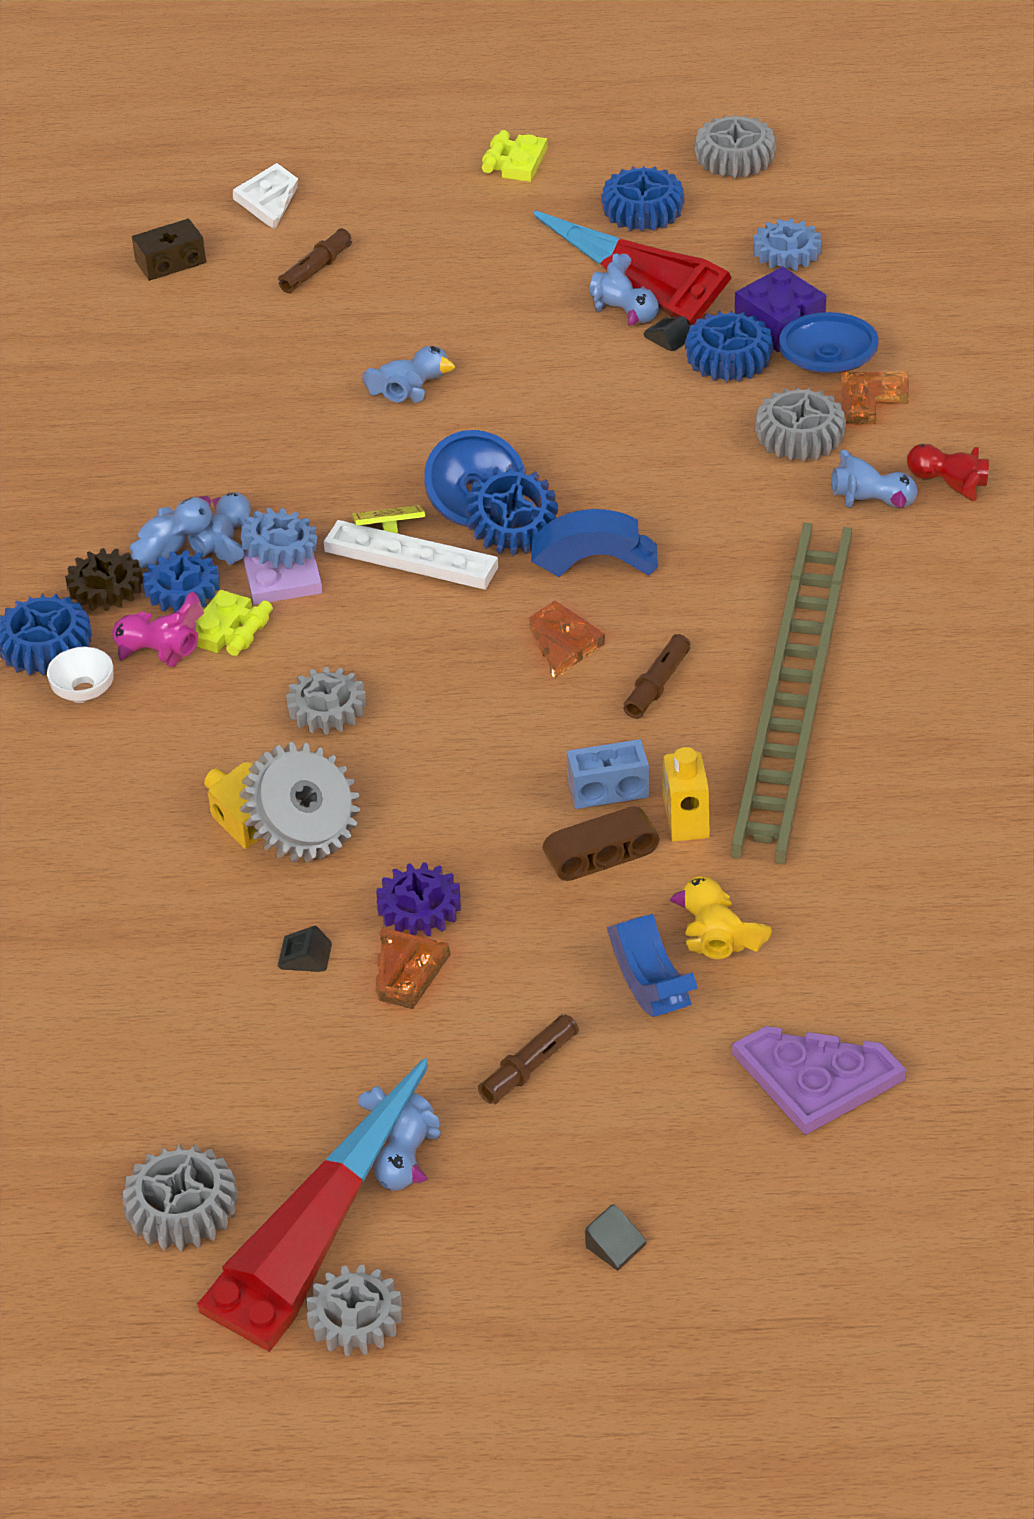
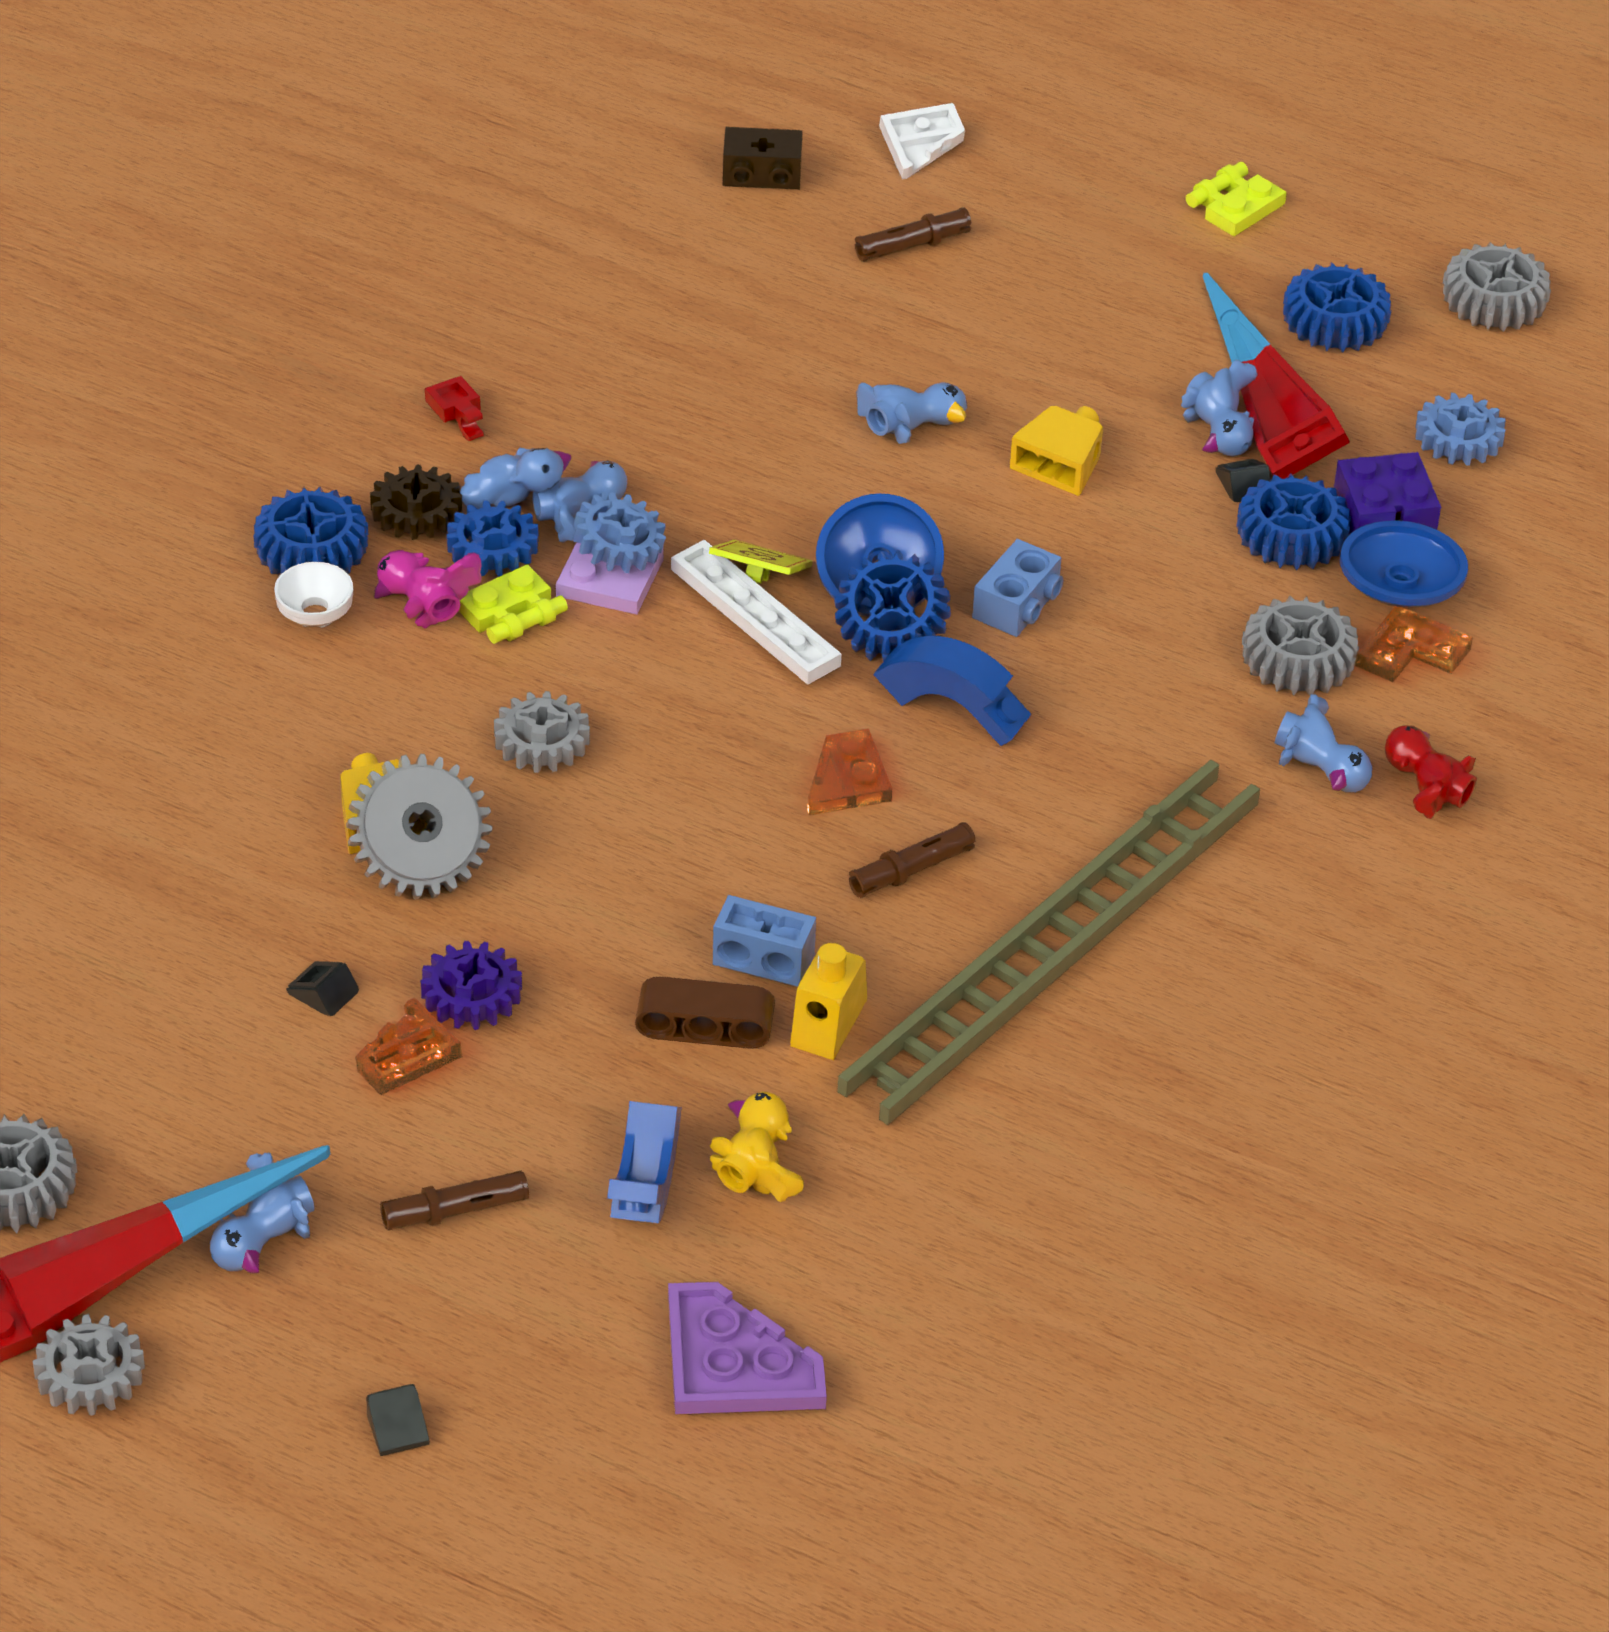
camera: 25 degrees right, 0 degrees up
(75, 498) = (457, 401): none -> red plate
(534, 361) = (1059, 448): none -> yellow torso
(581, 464) = (1017, 588): none -> medium blue brick

